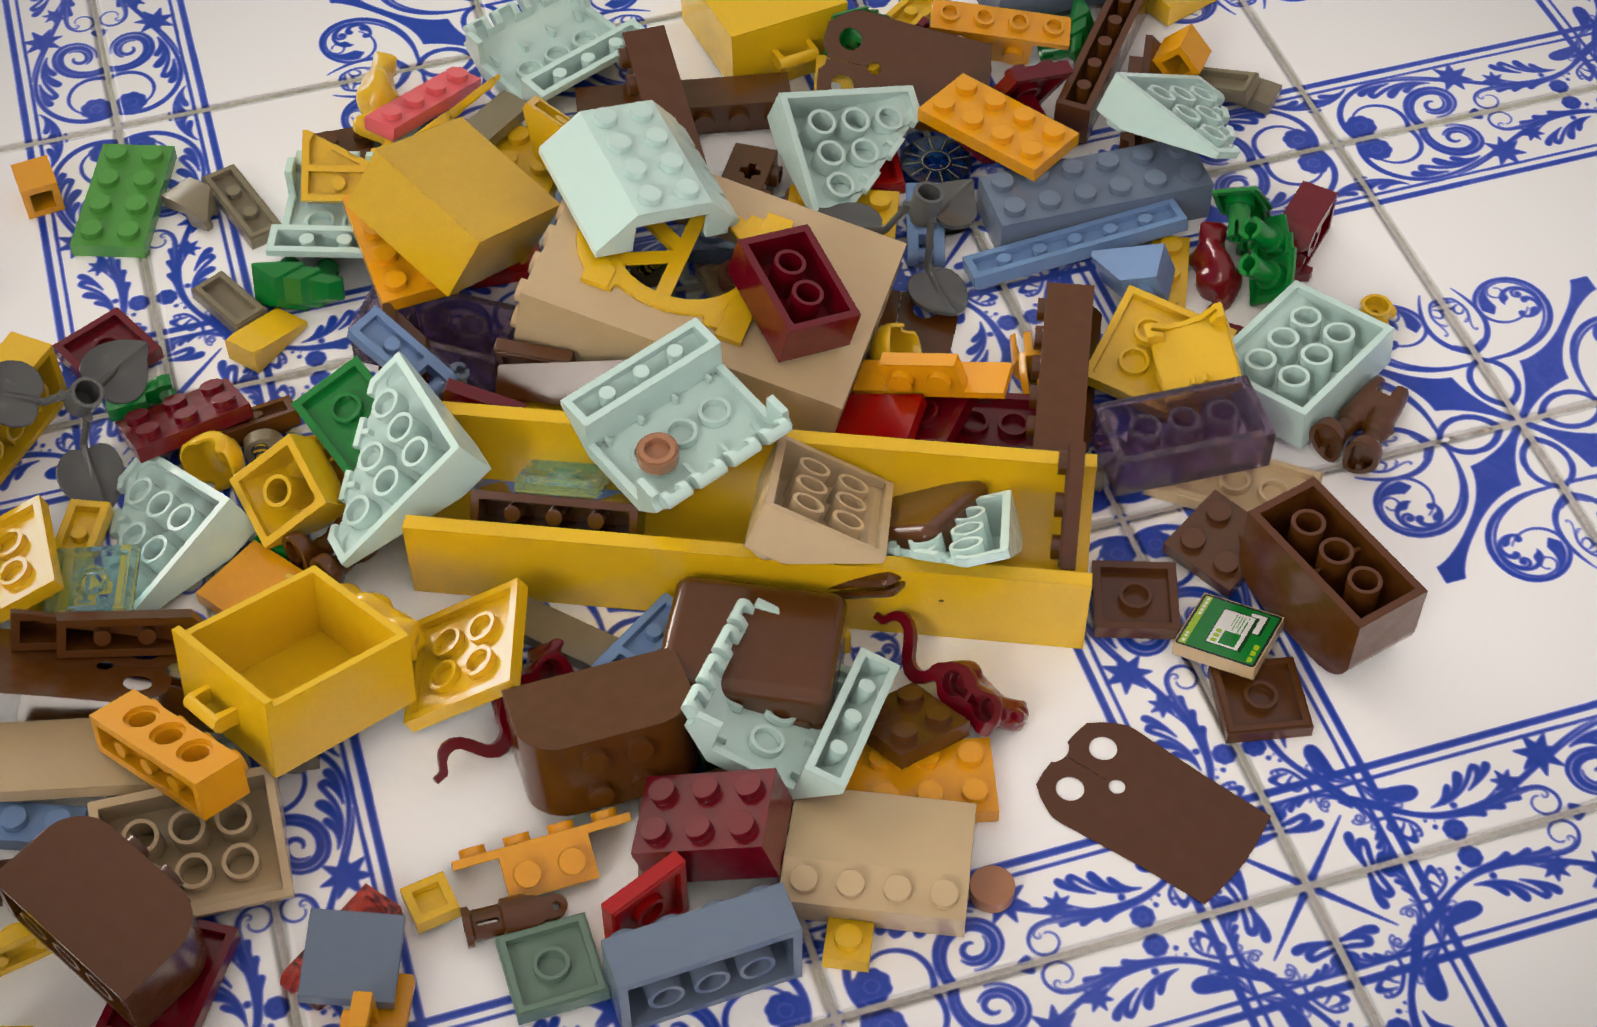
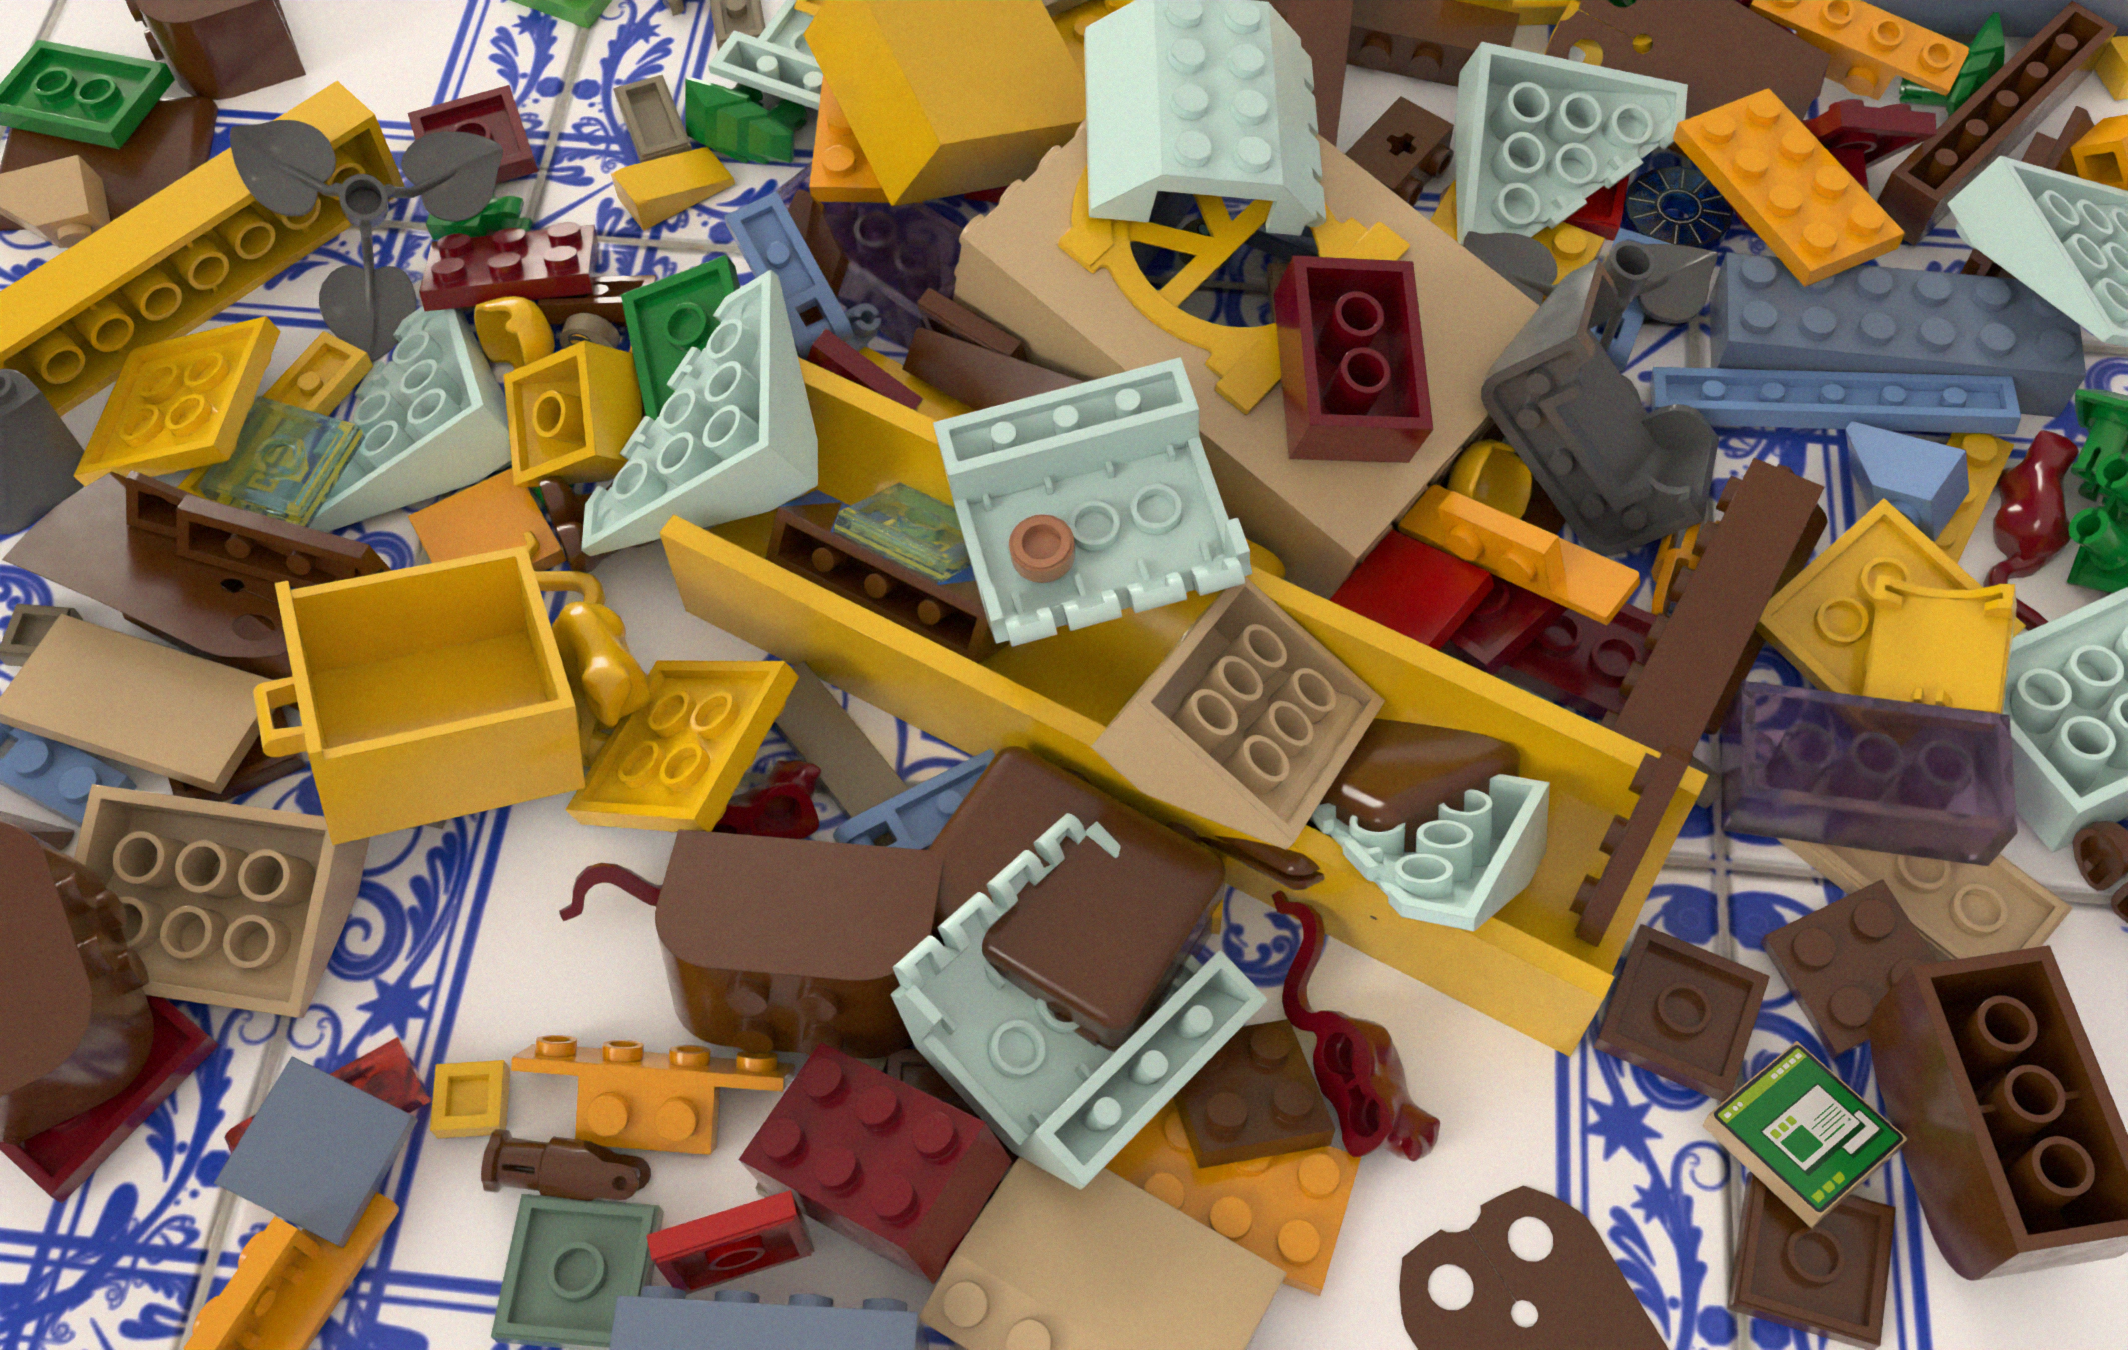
camera: 25 degrees right, 10 degrees up
(170, 754) = (215, 759): light orange brick -> none
(956, 316) = (1585, 434): none -> dark grey windscreen

